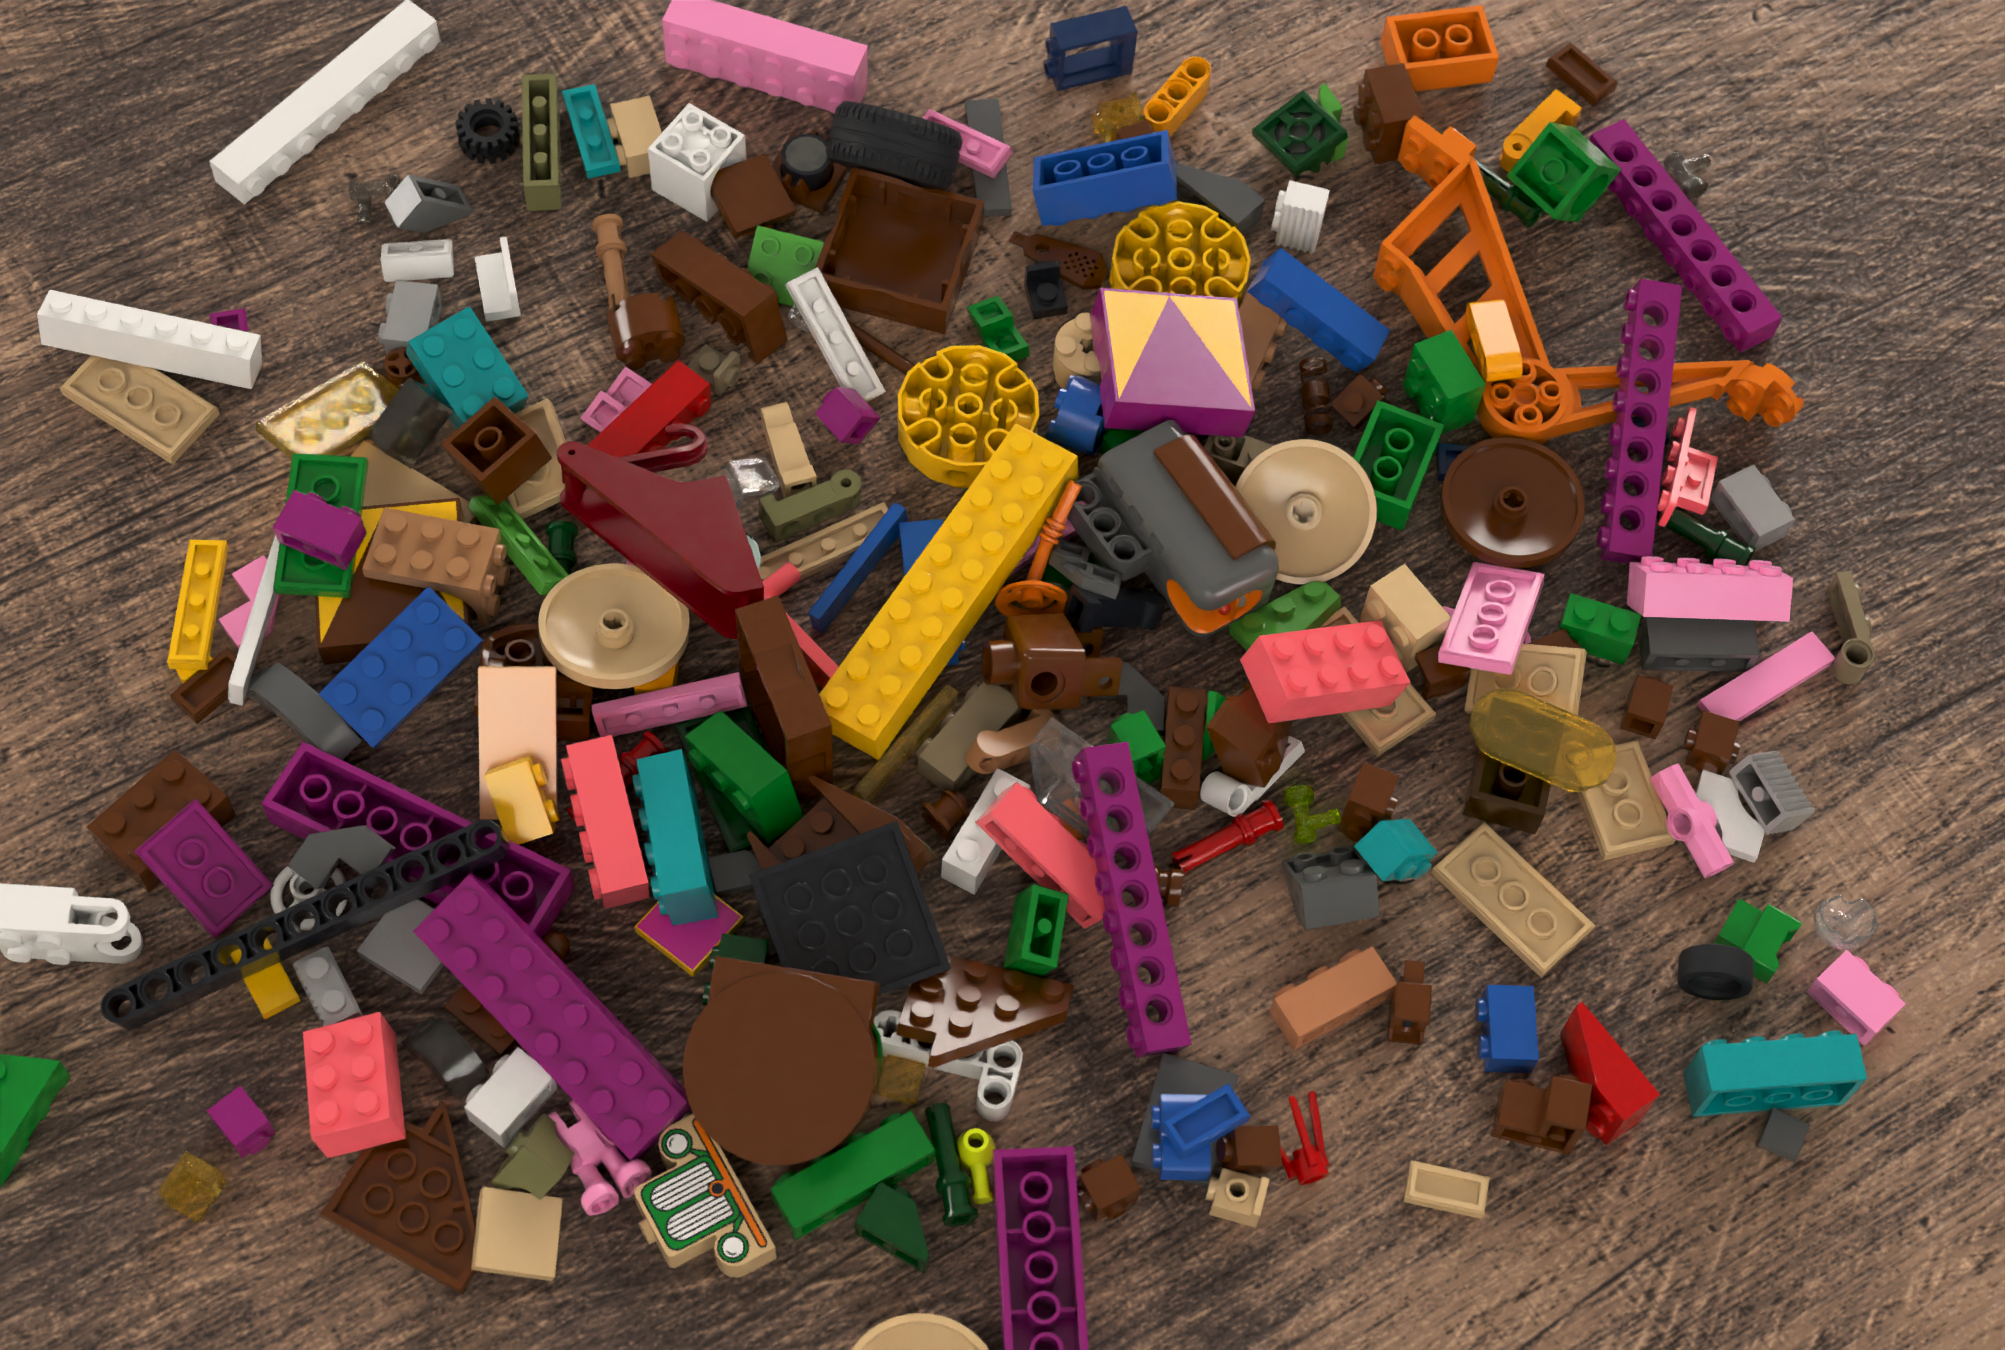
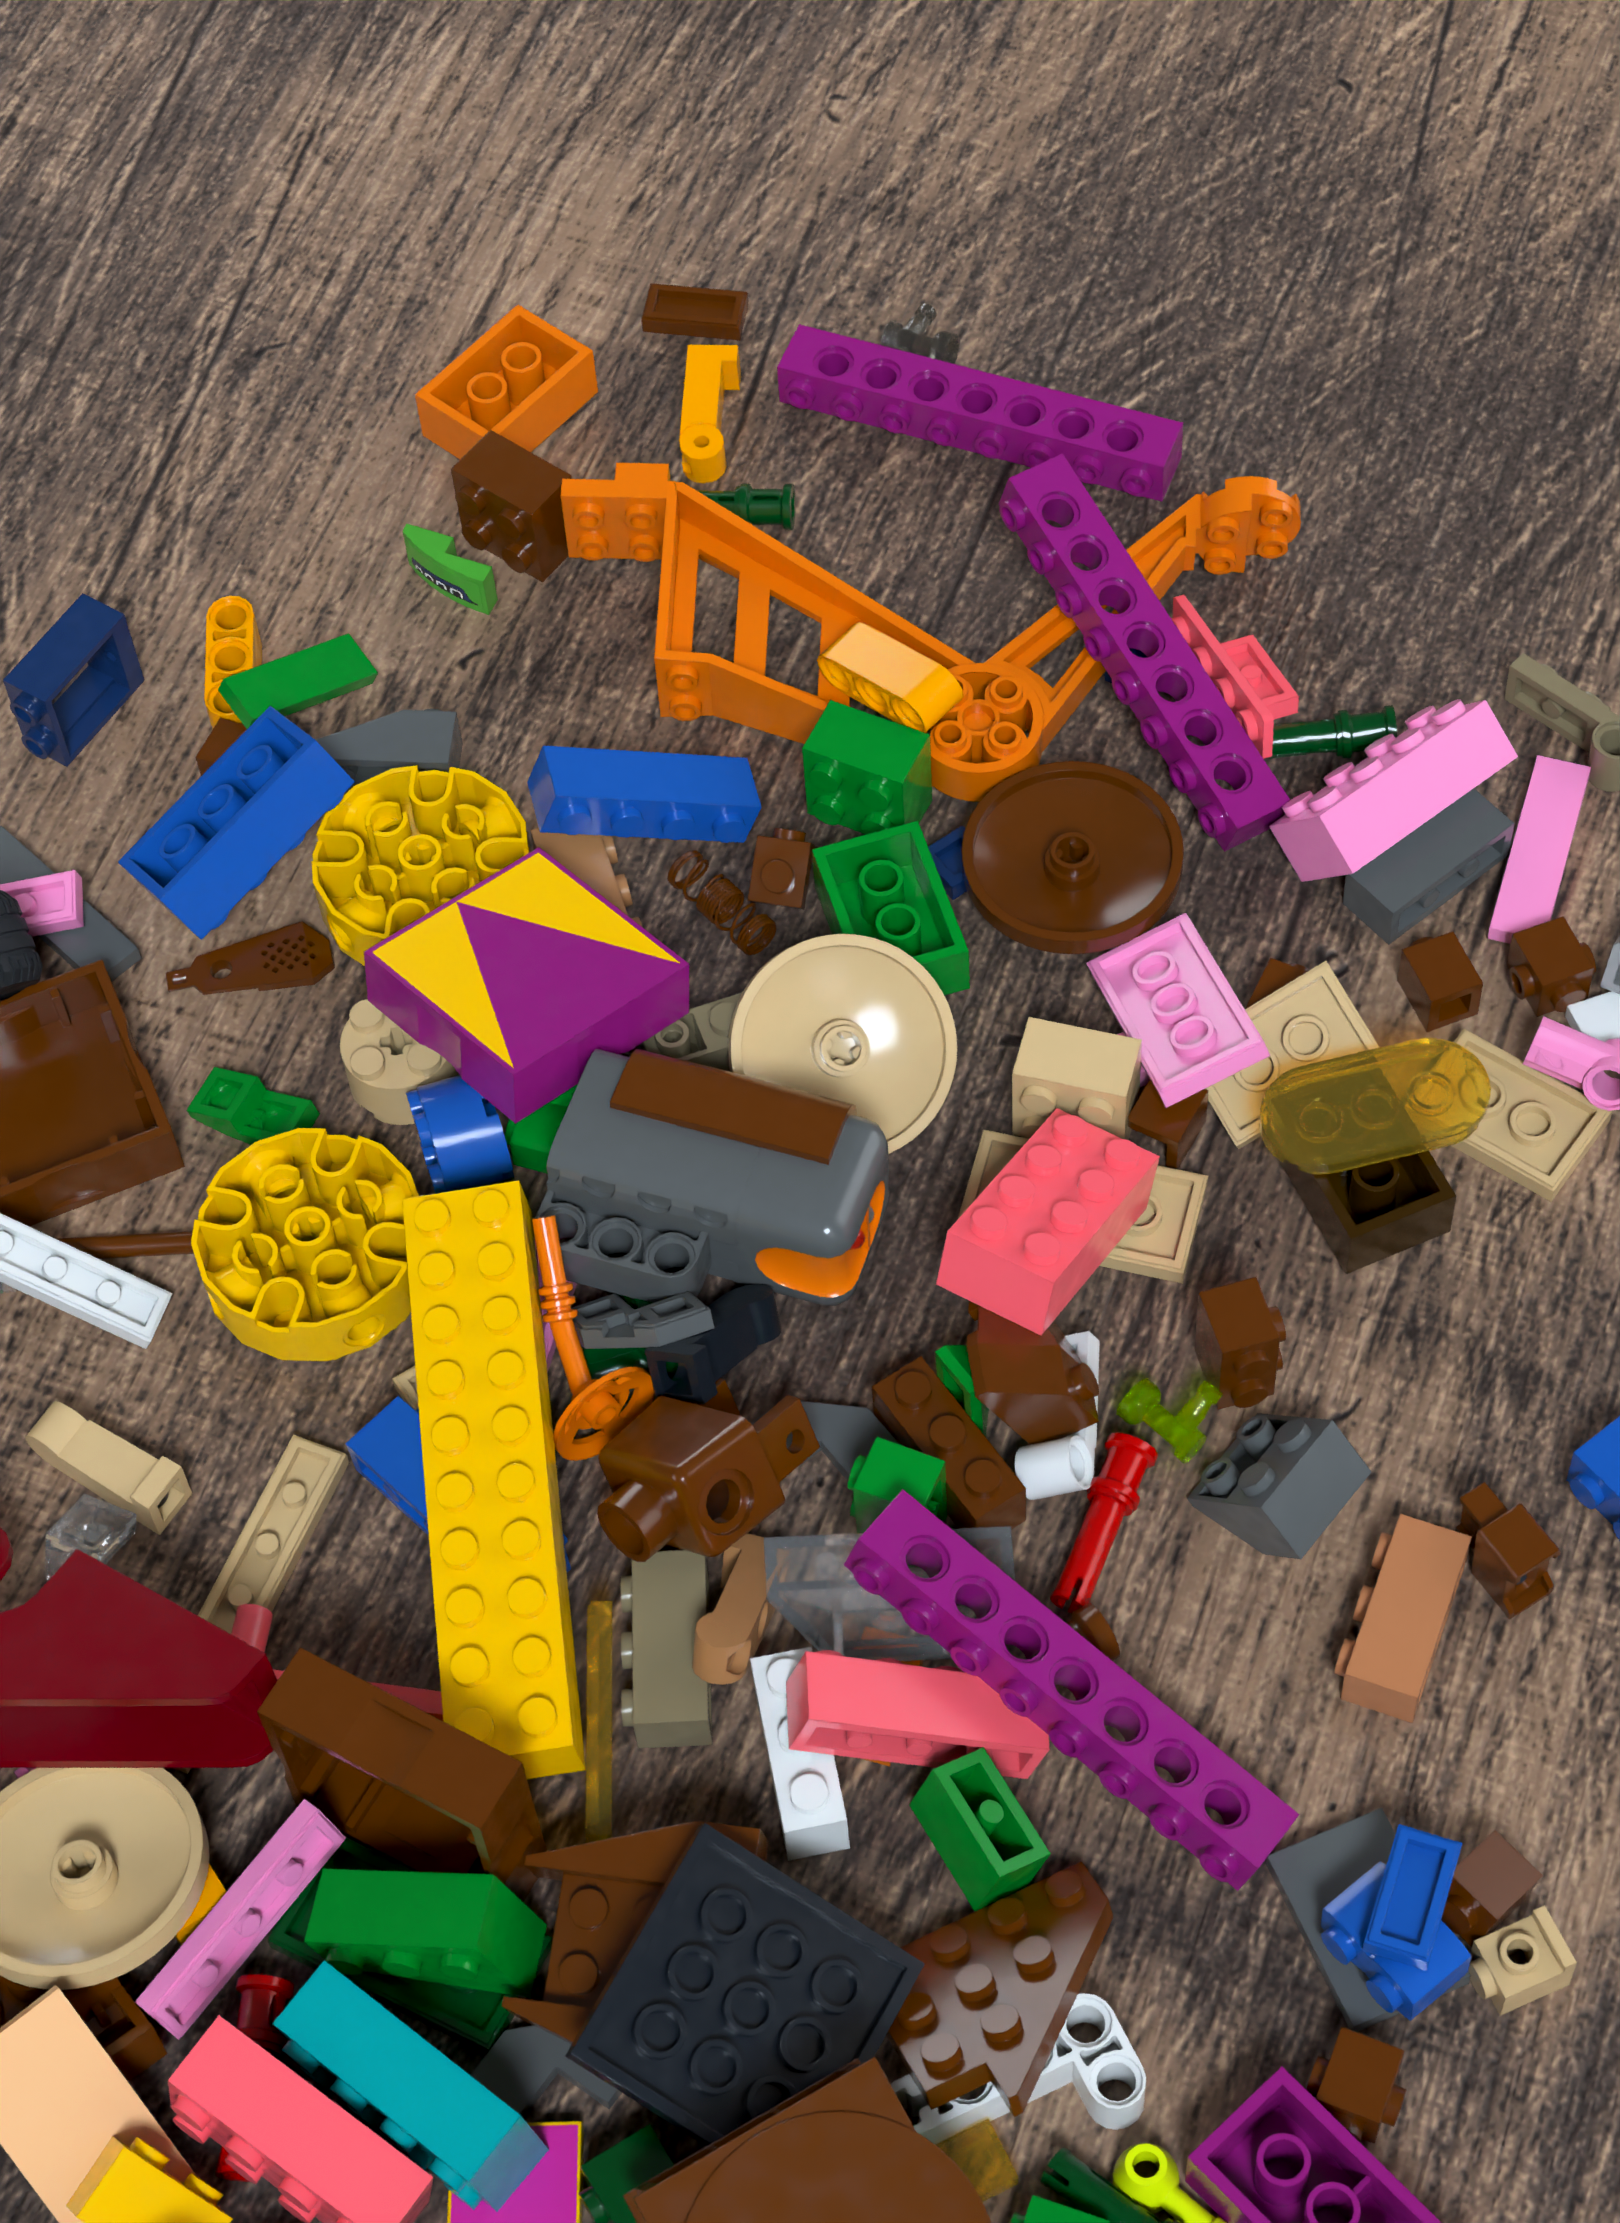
camera: 30 degrees left, 5 degrees down
(810, 506) = (200, 1515): olive leg -> none
(847, 415) = (150, 1358): magenta brick -> none
(857, 568) = (337, 1544): blue tile -> none
(946, 812) = (726, 1770): reddish brown brick -> none
(1045, 289) = (269, 1018): black bracket -> none
(1116, 115) = (174, 742): clear yellow brick -> none
(1202, 127) = (299, 680): none -> green tile
(1295, 611) = (928, 1197): bright green wing -> none
(1299, 216) = (517, 700): white brick -> none
(1300, 135) = (426, 607): dark green piece -> none
(1308, 1163) = (1563, 1844): red plant -> none
(1396, 850) = (1324, 1374): teal brick -> none
(1513, 899) = (1496, 1329): tan tile -> none
(1563, 172) = (789, 430): green brick -> none
(1600, 627) = (1304, 928): green brick -> none
(1752, 508) = (1345, 663): light grey brick -> none

